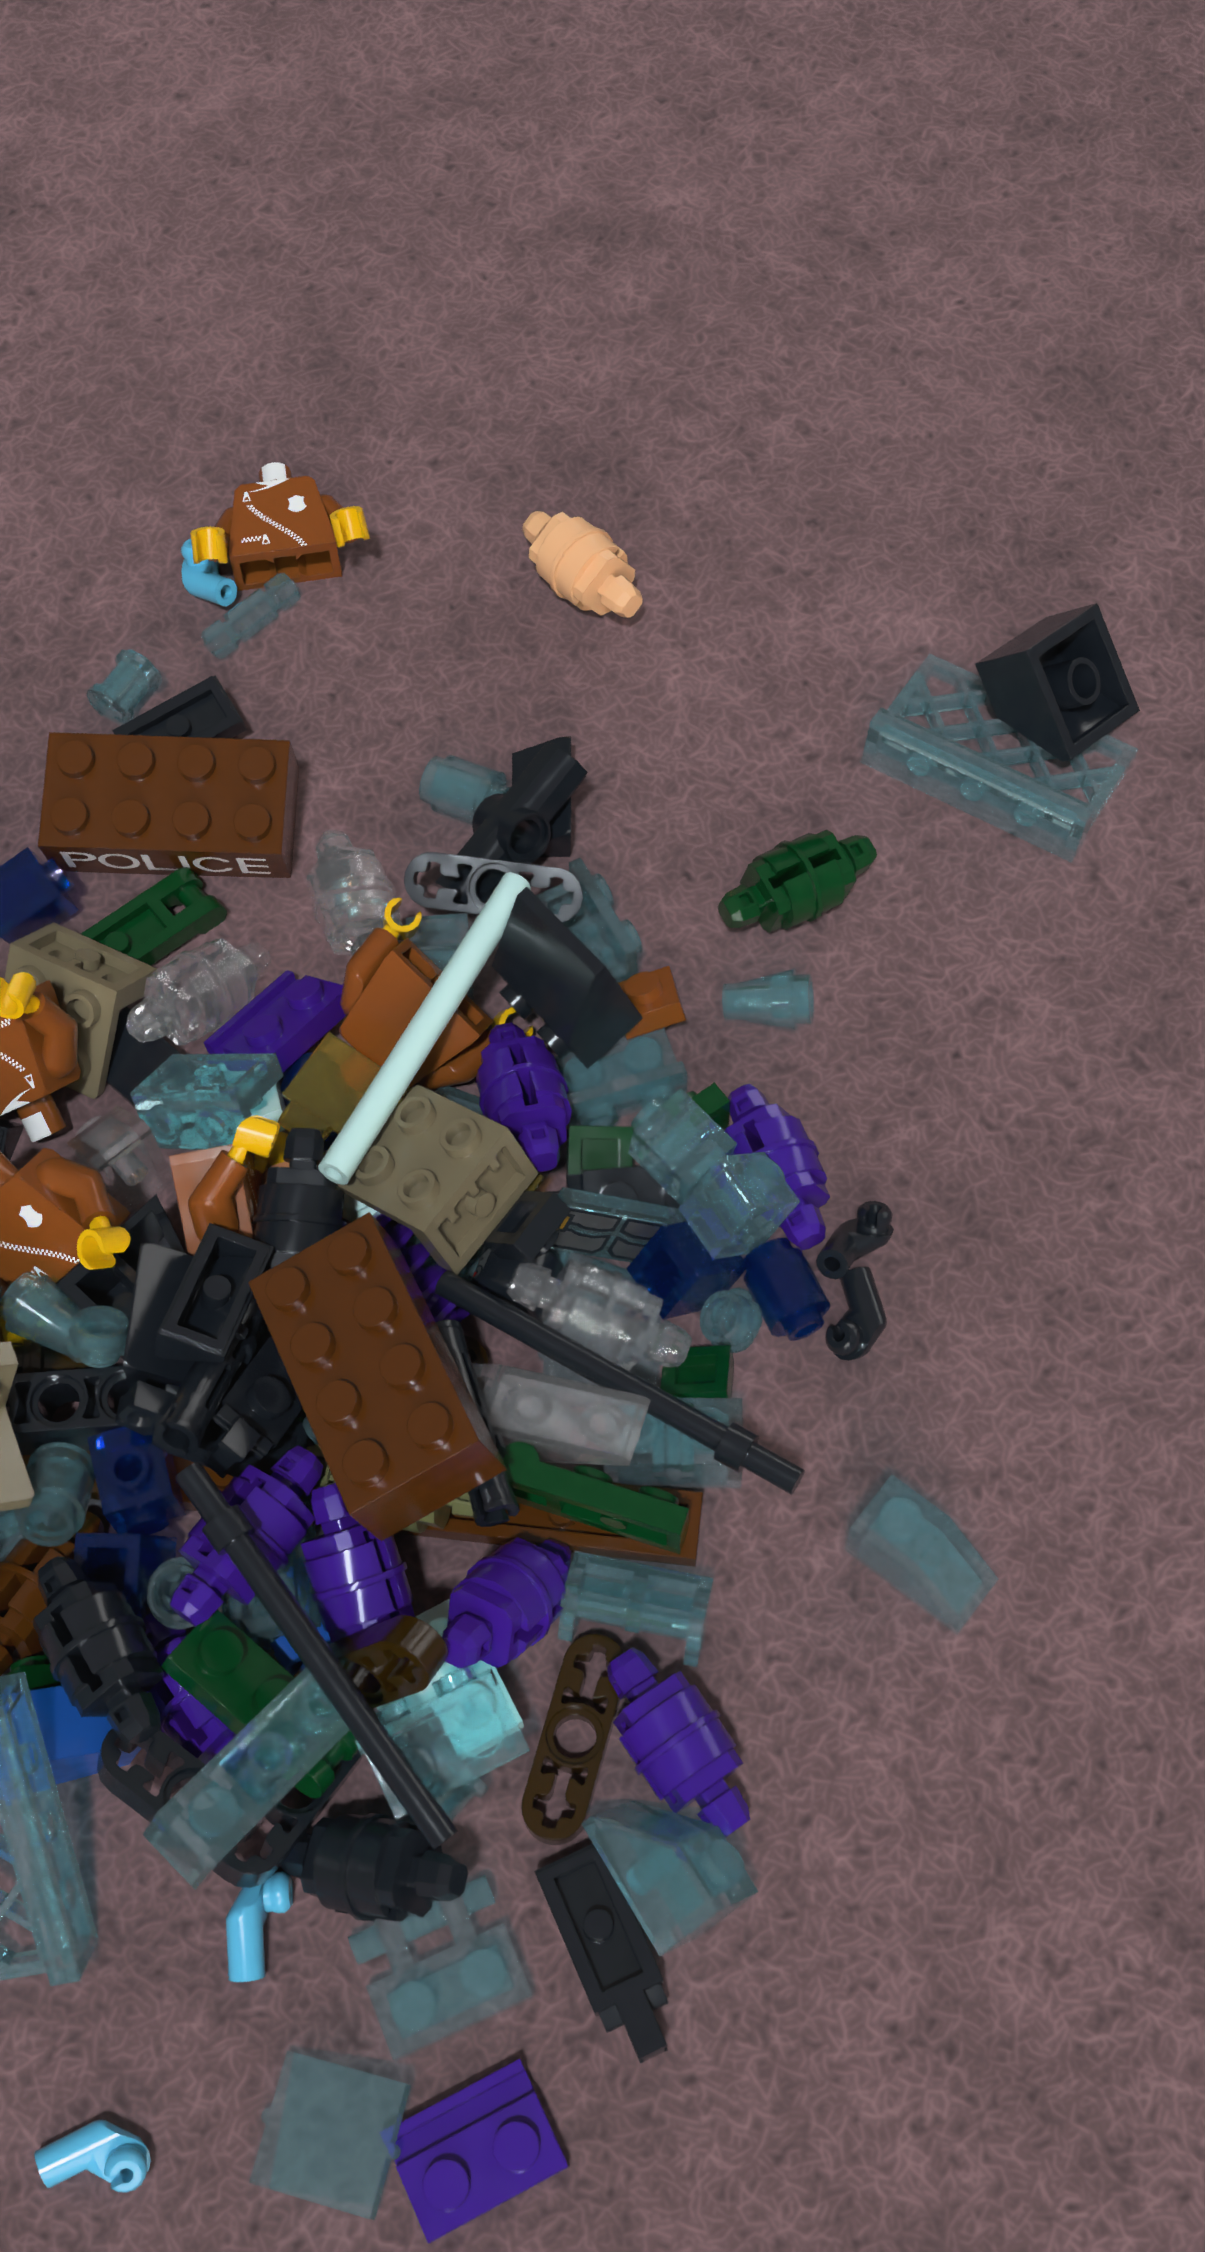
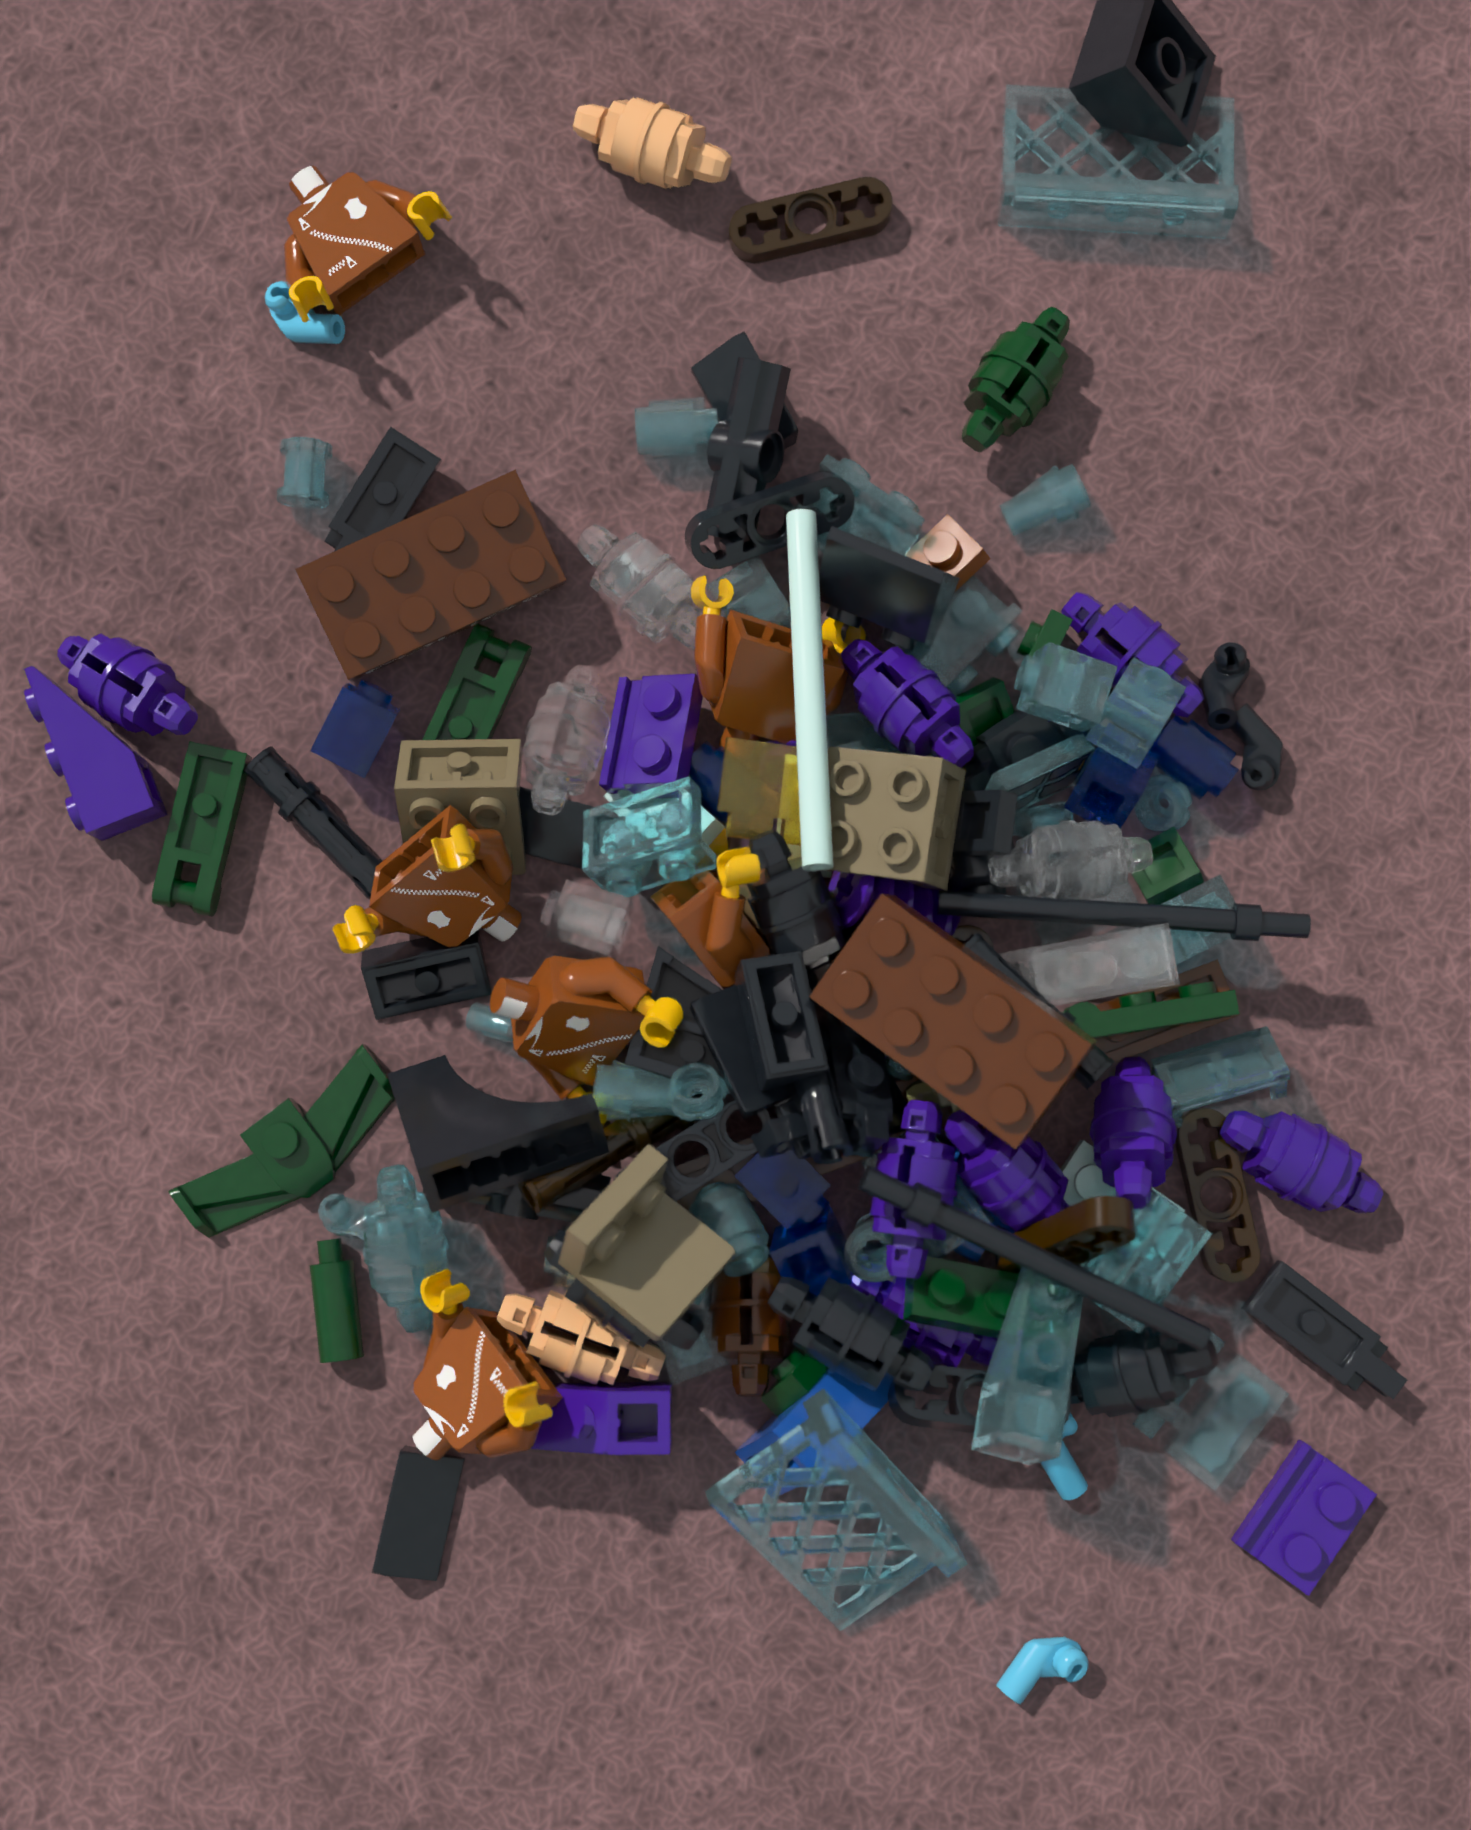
camera: 30 degrees left, 20 degrees up
(250, 615) = (370, 339): clear light blue axle -> none
(330, 2135) = (1198, 1562): clear light blue piece -> none
(671, 1870) = (1346, 1257): clear light blue slope -> none
(678, 666) = (822, 199): none -> dark brown beam
(921, 1554) = (1401, 921): clear light blue slope -> none

